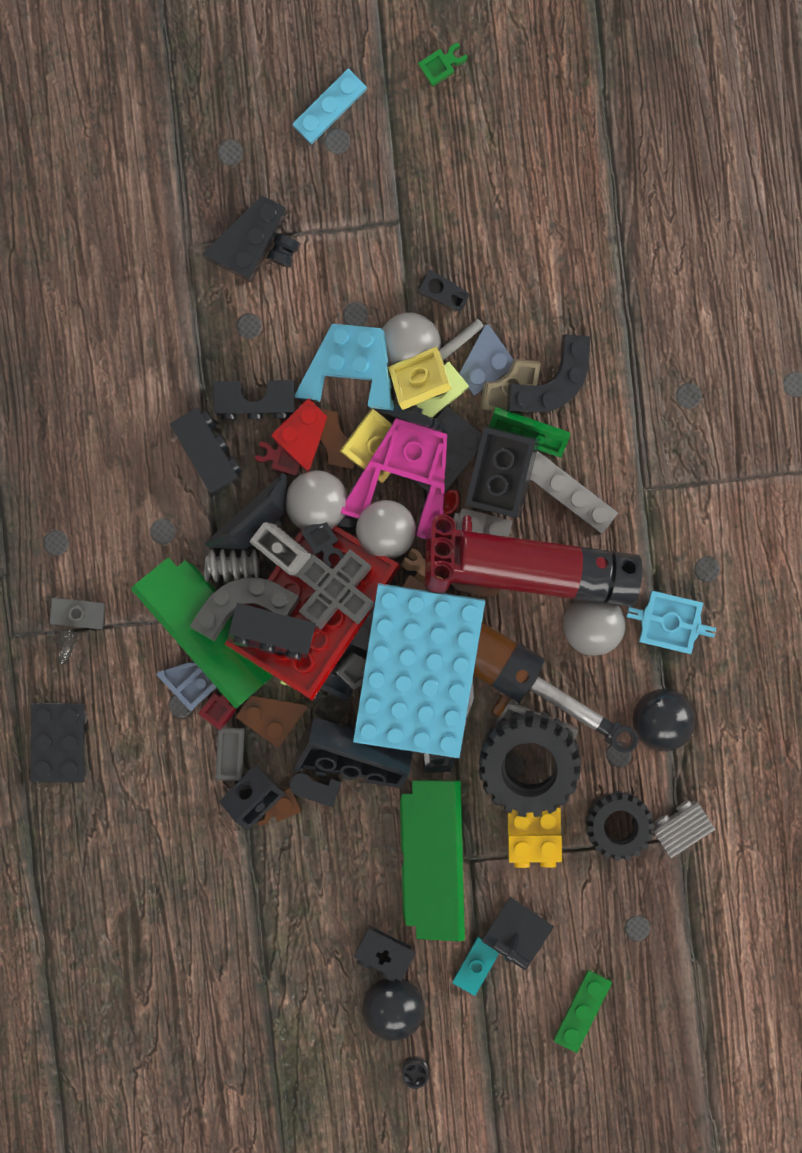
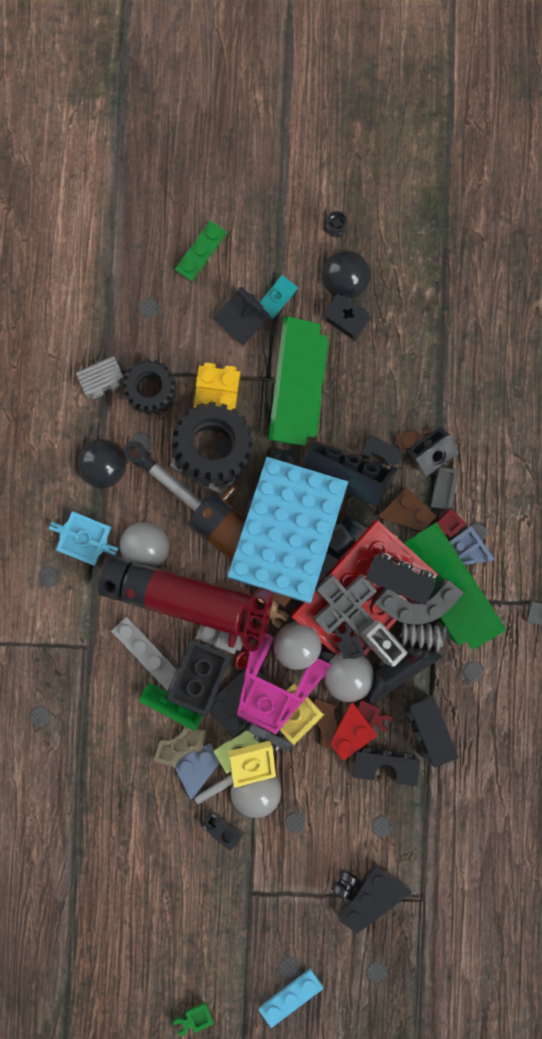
camera: 170 degrees left, 5 degrees down
(351, 354) = (301, 790): medium azure wing -> none
(562, 387) = (138, 739): black plate -> none

